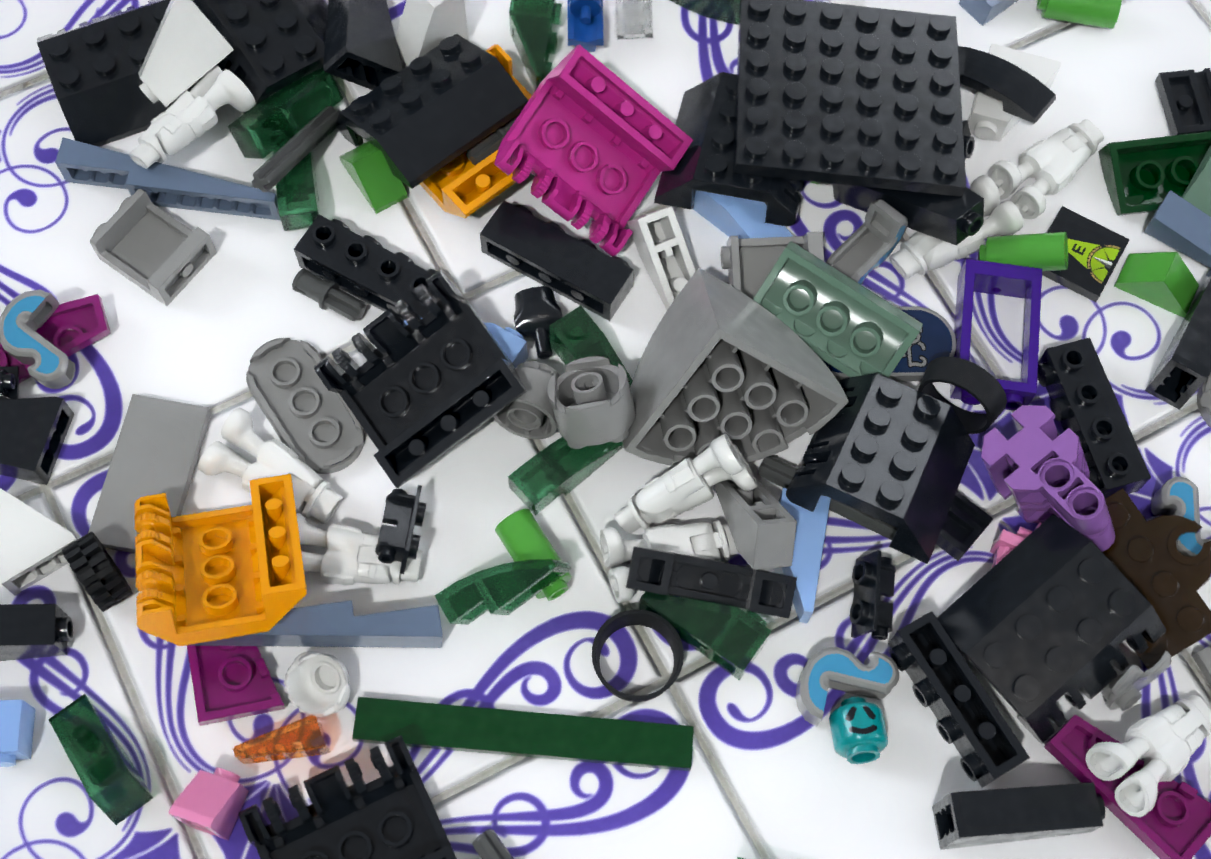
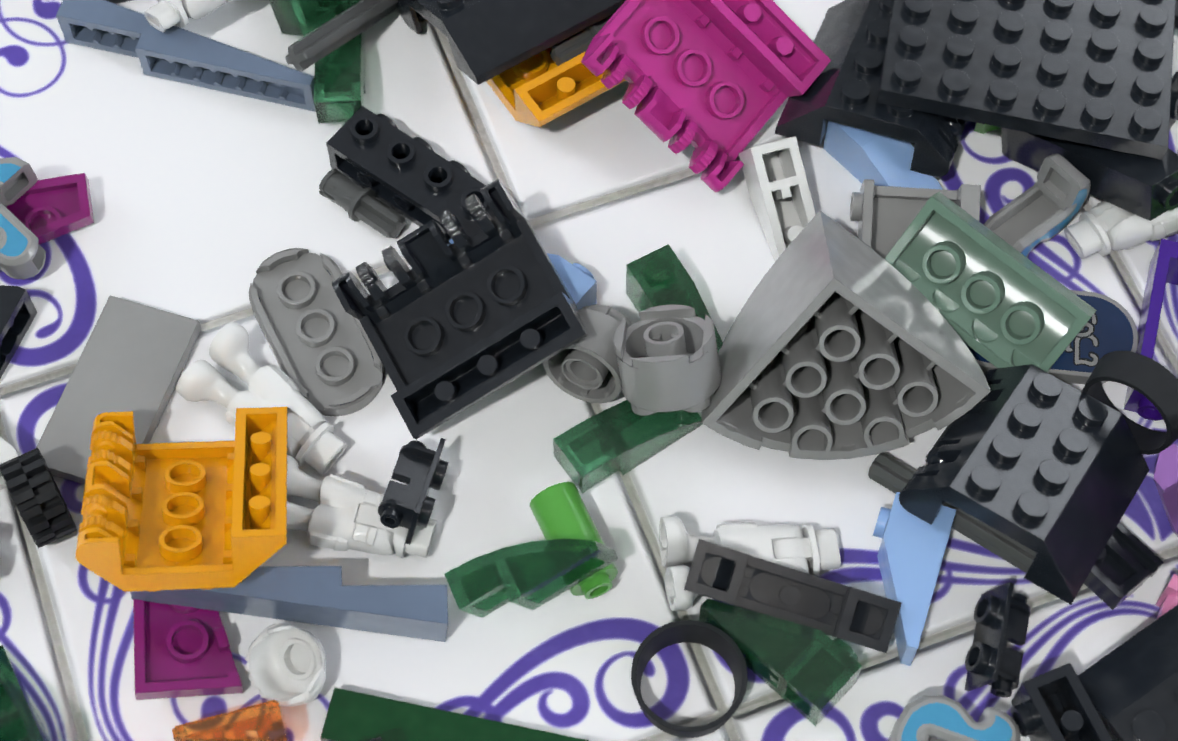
camera: 10 degrees right, 5 degrees down
(152, 247) = (157, 127): light grey panel -> none
(373, 177) = (435, 71): bright green slope -> none
(534, 314) = (609, 249): black piece -> none
(557, 259) = (647, 190): black brick -> none
(687, 486) = (775, 476): white piece -> none
(758, 525) = (858, 528): light grey slope -> none

